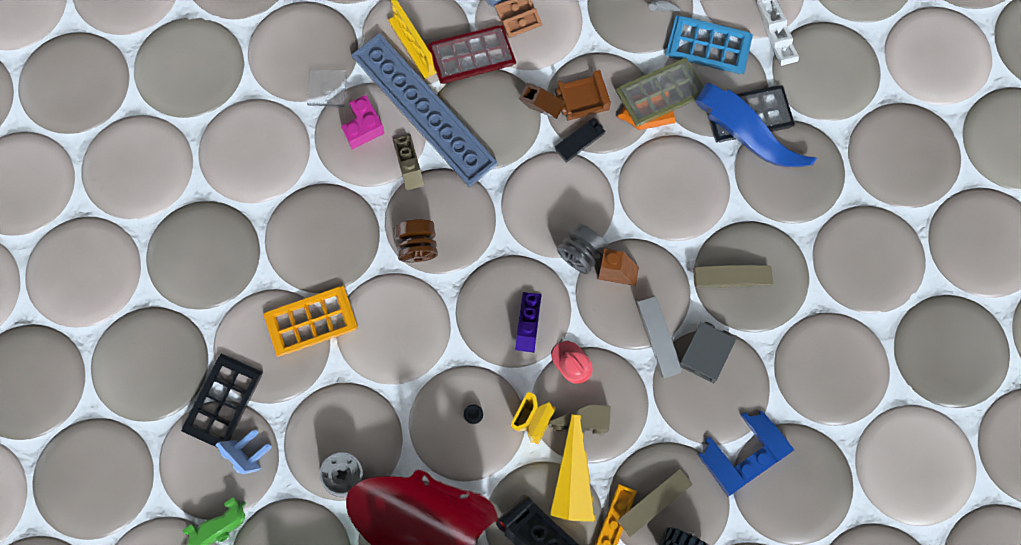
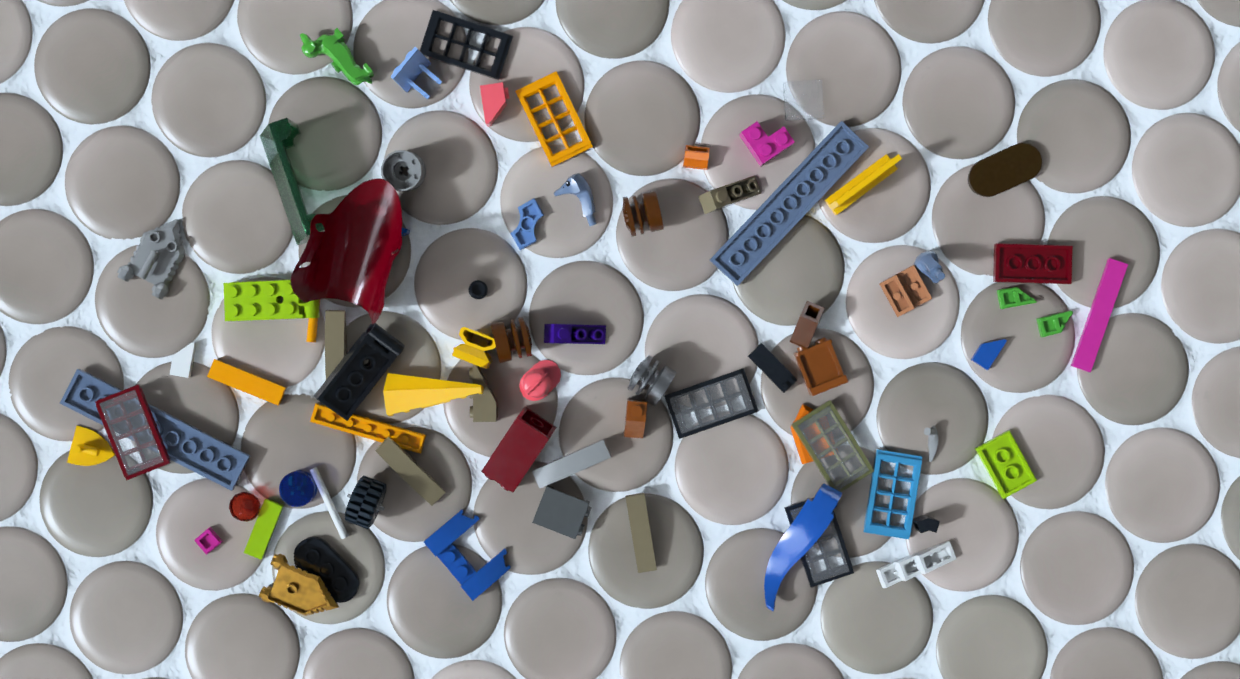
camera: 85 degrees right, 15 degrees up
(282, 378) = (493, 101): none -> coral slope
(368, 189) = (696, 157): none -> orange piece
(381, 301) = (578, 186): none -> sand blue animal
(420, 361) = (529, 216): none -> medium blue tile
(471, 54) = (855, 246): clear piece -> none
(528, 378) = (511, 339): none -> reddish brown wheel
(609, 199) = (711, 403): none -> clear piece
(641, 387) = (518, 449): none -> dark red slope
(740, 17) = (925, 523): none -> black piece

